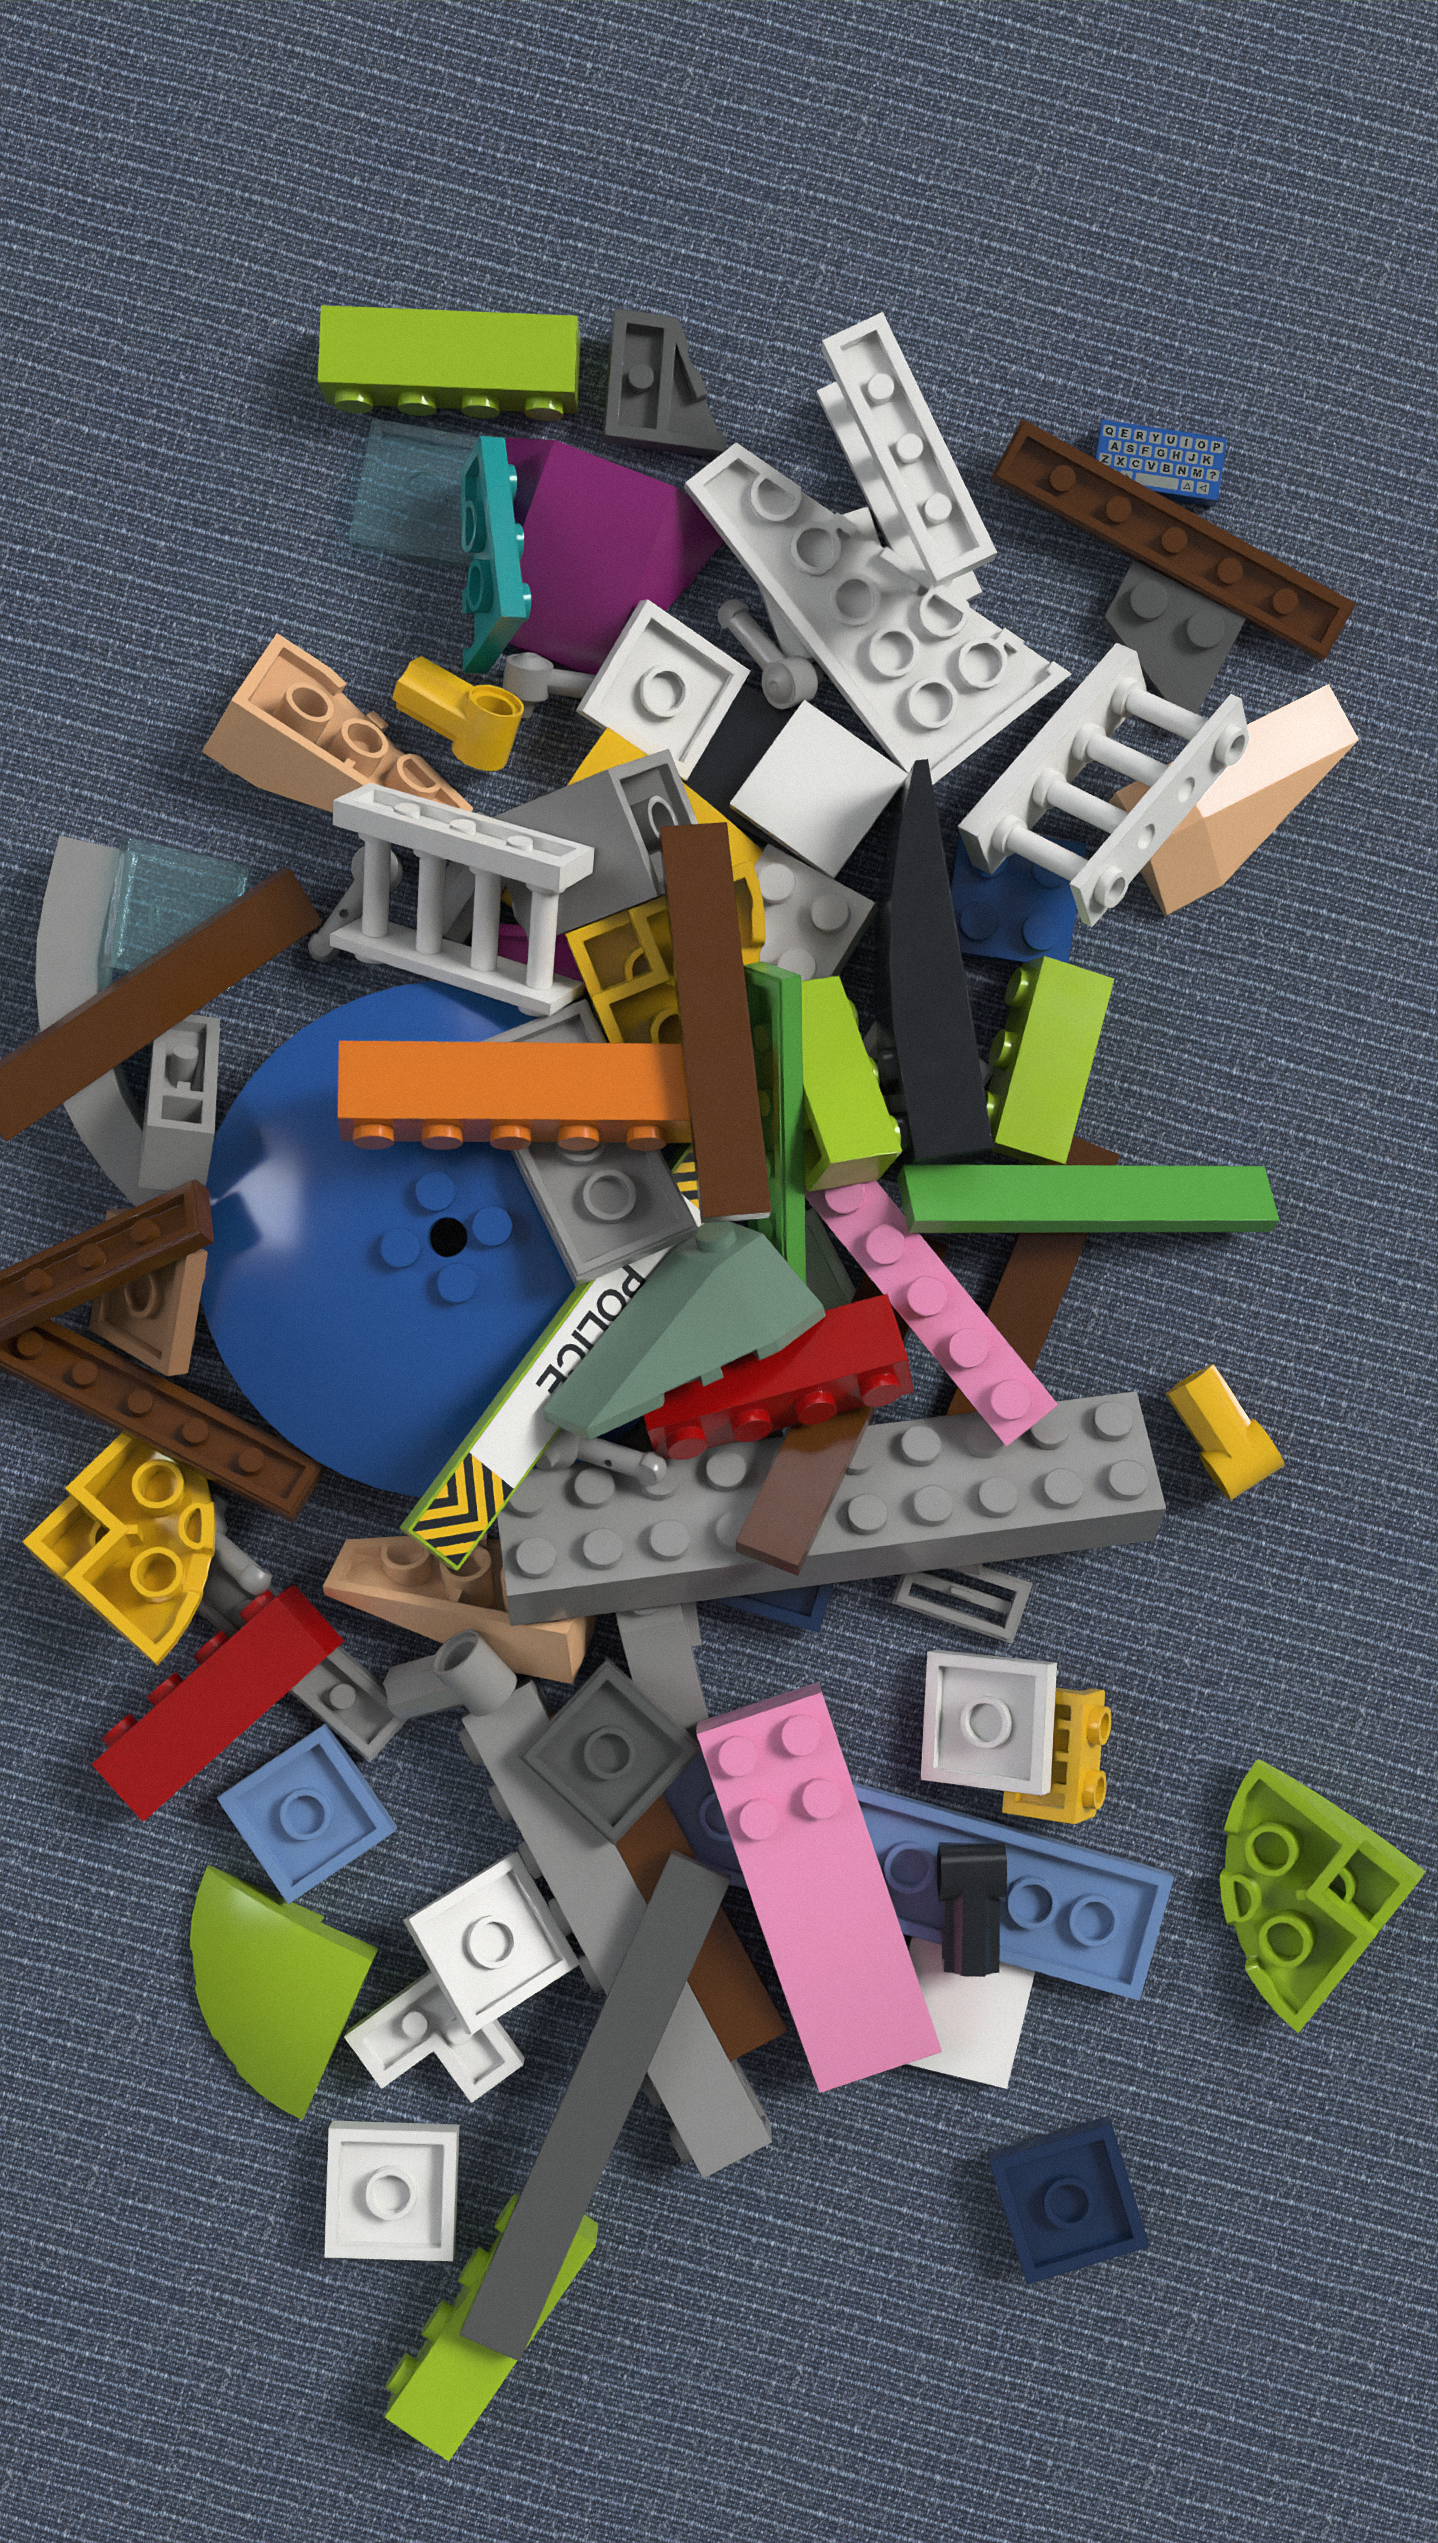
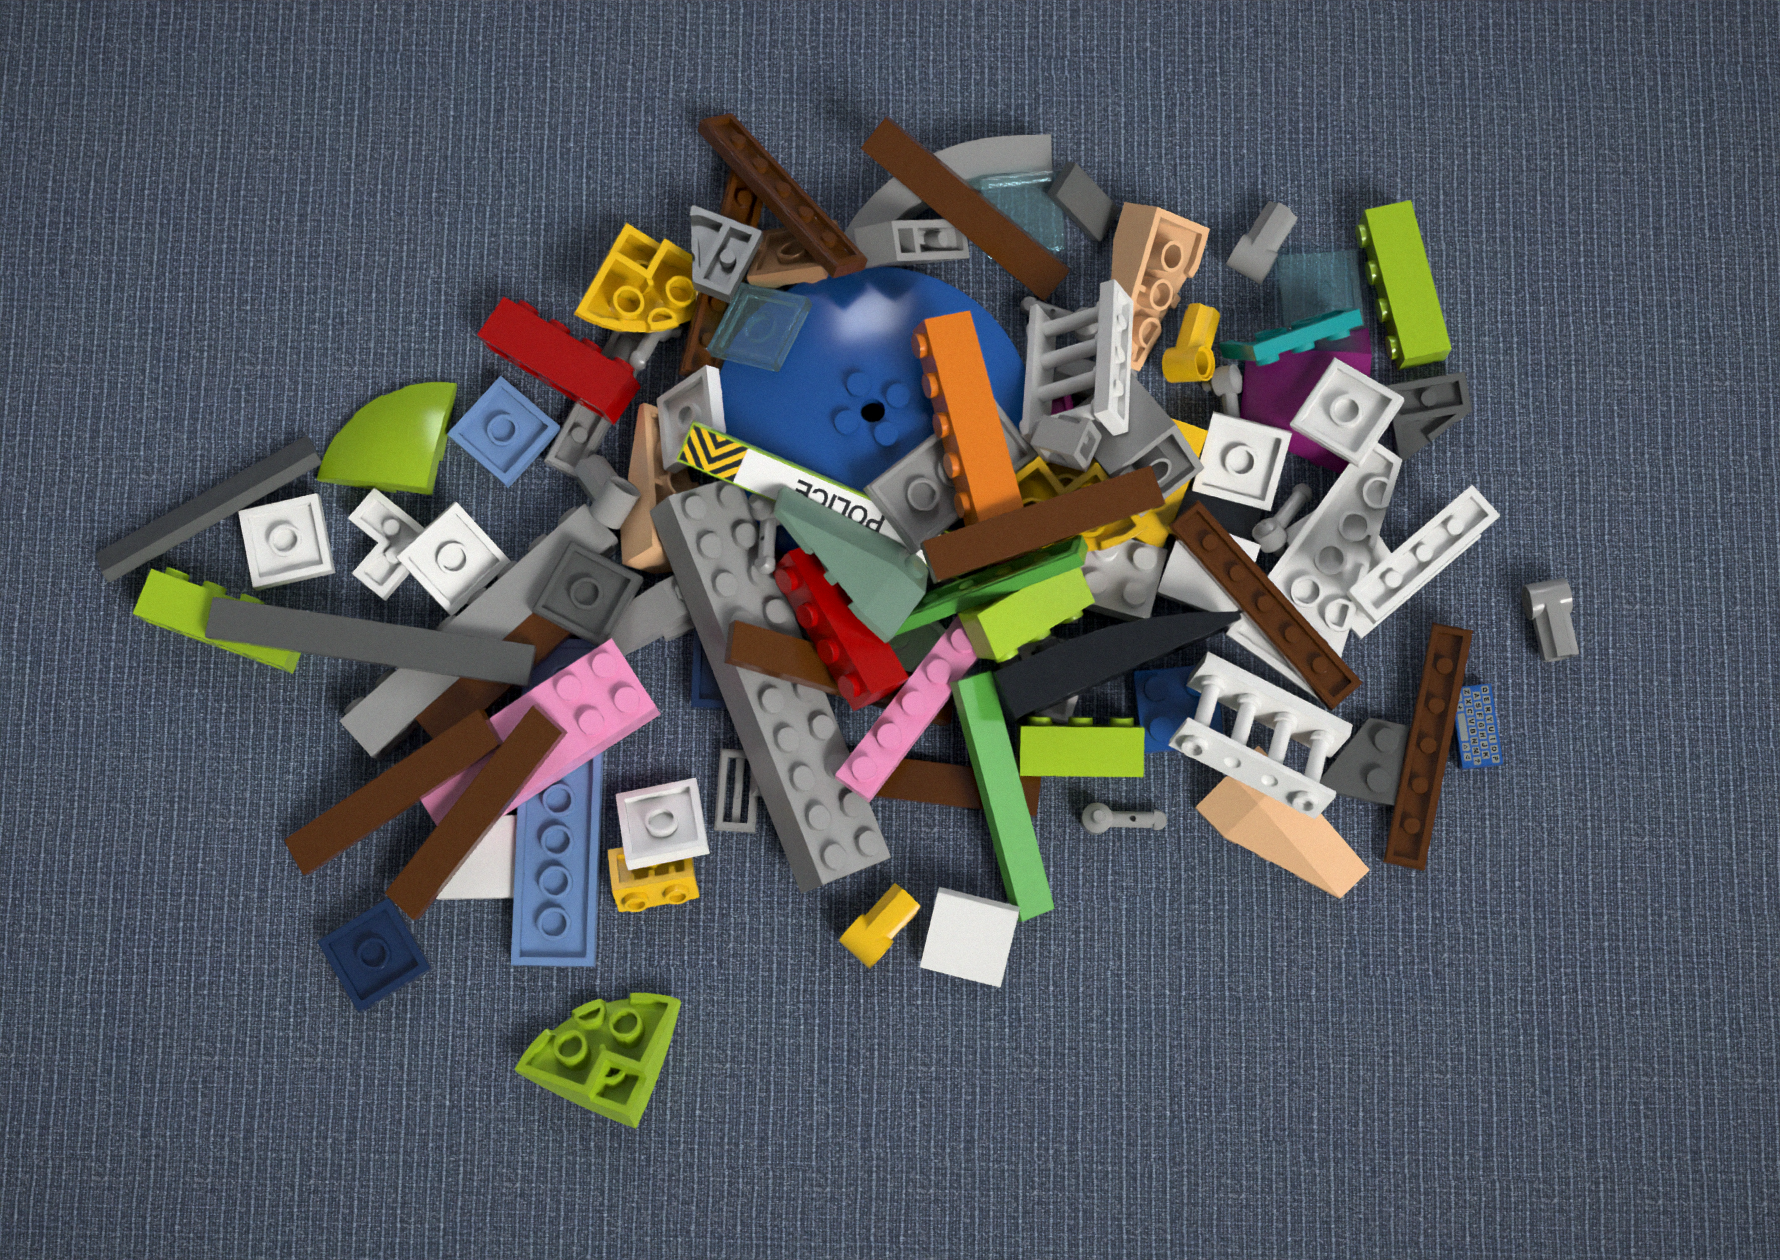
camera: 80 degrees right, 10 degrees down
(116, 1407) = (720, 252): none -> wing
(182, 815) = (1083, 201): none -> dark grey tile
(257, 1377) = (759, 327): none -> clear light blue tile
(307, 2301) = (208, 509): none -> dark grey tile
(332, 569) = (1258, 250): none -> light grey piece
(358, 1519) = (692, 399): none -> white plate
(582, 949) = (1066, 441): none -> light grey brick
(639, 504) = (1347, 412): none -> white tile
(835, 2118) = (393, 791): none -> reddish brown tile
(900, 721) = (1264, 605): none -> reddish brown tile
(904, 2002) = (476, 812): none -> reddish brown tile
(971, 1888) = (557, 837): black piece -> none
(1016, 297) = (1550, 608): none -> light grey piece
(1149, 1062) = (1098, 818): none -> light grey piece
(1278, 1303) = (969, 937): none -> white tile

